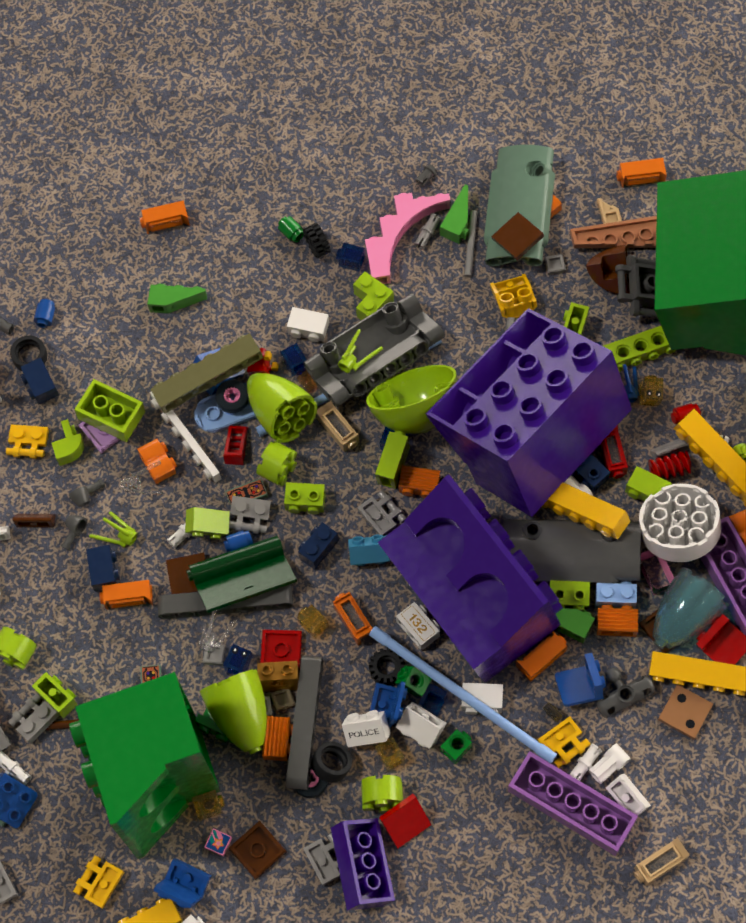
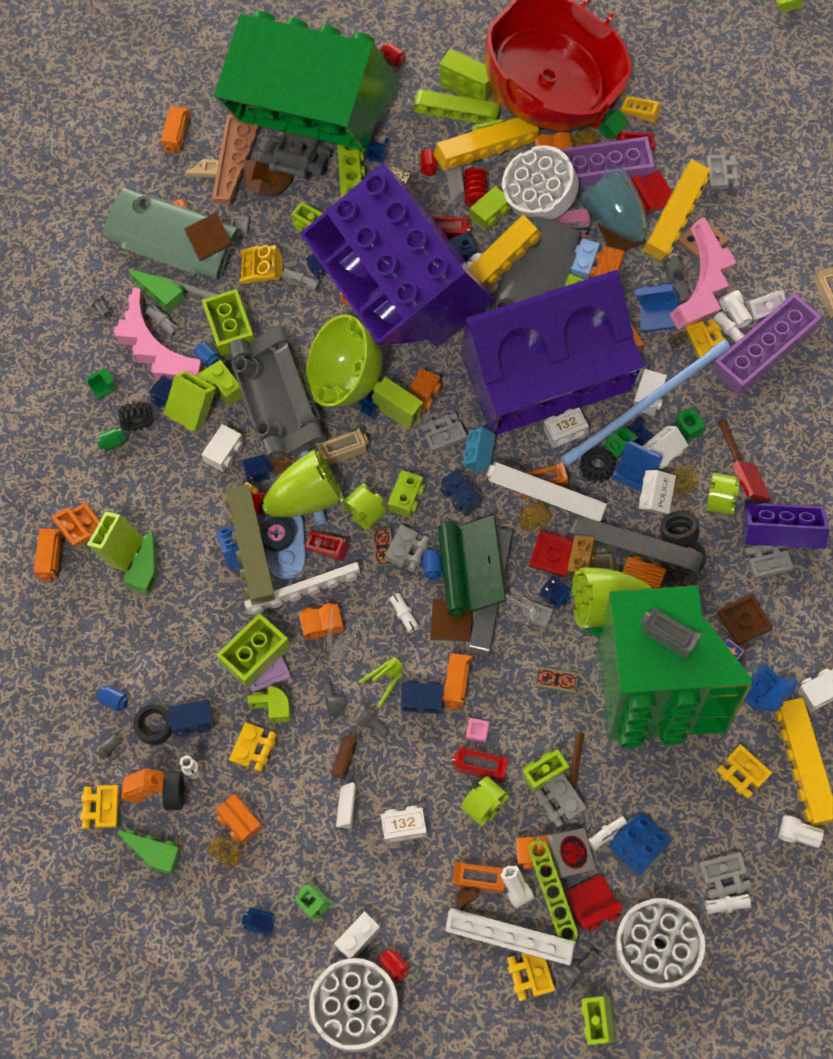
camera: 75 degrees left, 0 degrees up
(51, 636) = (480, 764): none -> red window
(86, 627) = (477, 730): none -> bright pink tile
(140, 734) = (669, 633): none -> dark grey window
(184, 263) = (115, 541): none -> lime brick
(197, 231) = (77, 524): none -> orange slope
(207, 522) = (407, 585): lime brick -> none
(334, 621) = (546, 491): none -> white brick
(342, 278) = (189, 400): none -> lime brick
(346, 203) = (101, 383): none -> green panel
(348, 360) = (284, 414): lime plant -> none
(401, 280) = (207, 354): none -> blue brick
(440, 285) = (227, 320): none -> lime brick
(449, 795) = (730, 440): none -> reddish brown bar
(629, 728) = (711, 280): none -> bright pink arch
(684, 364) = (378, 152): none -> clear blue panel

